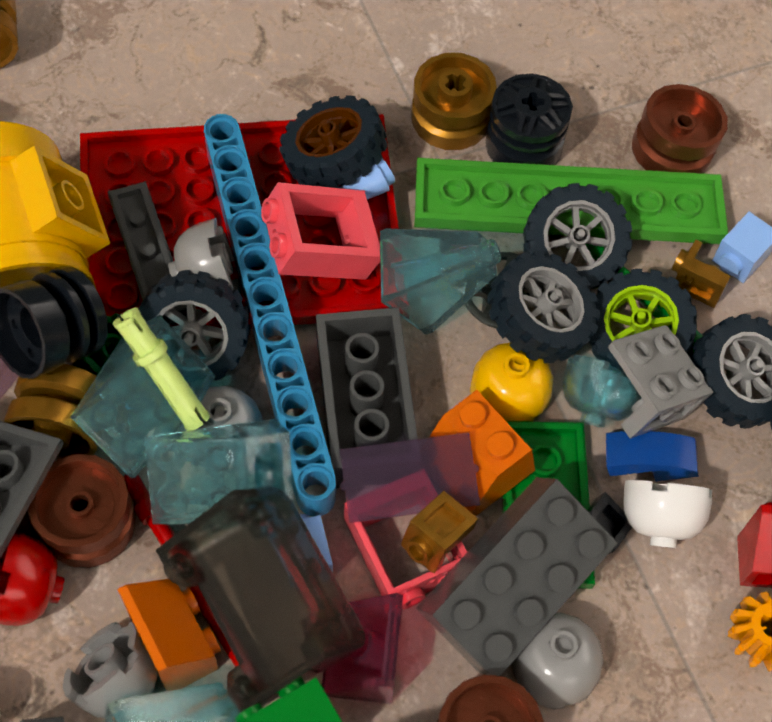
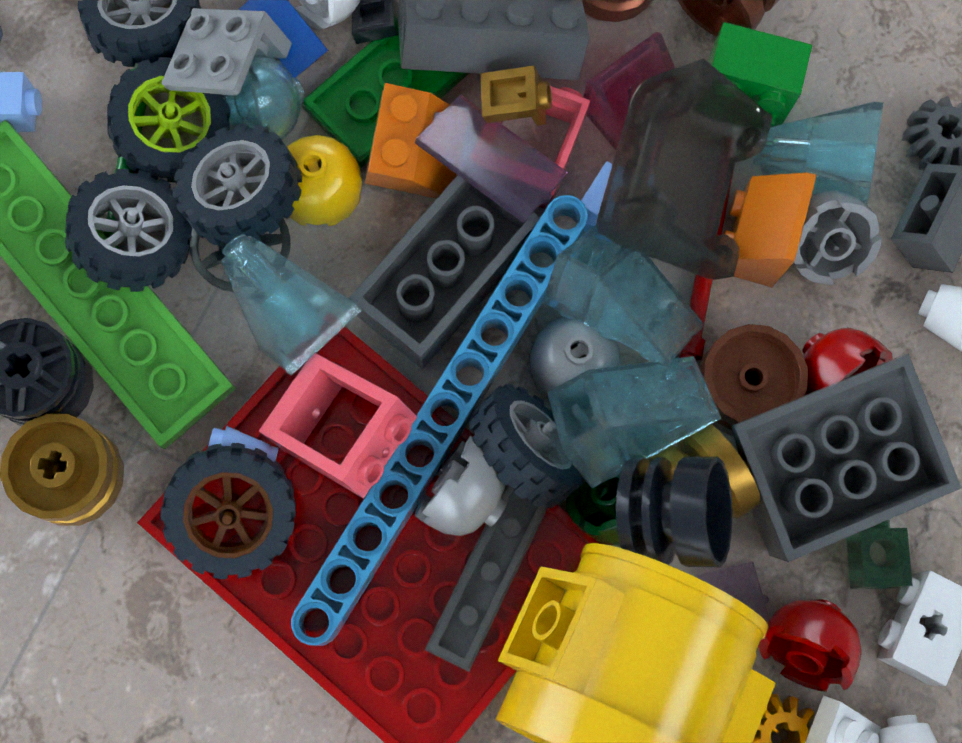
camera: 135 degrees left, 15 degrees up
(152, 355) = (612, 402): yellowish green pin -> none
(700, 279) = (73, 119): pearl gold bracket -> none

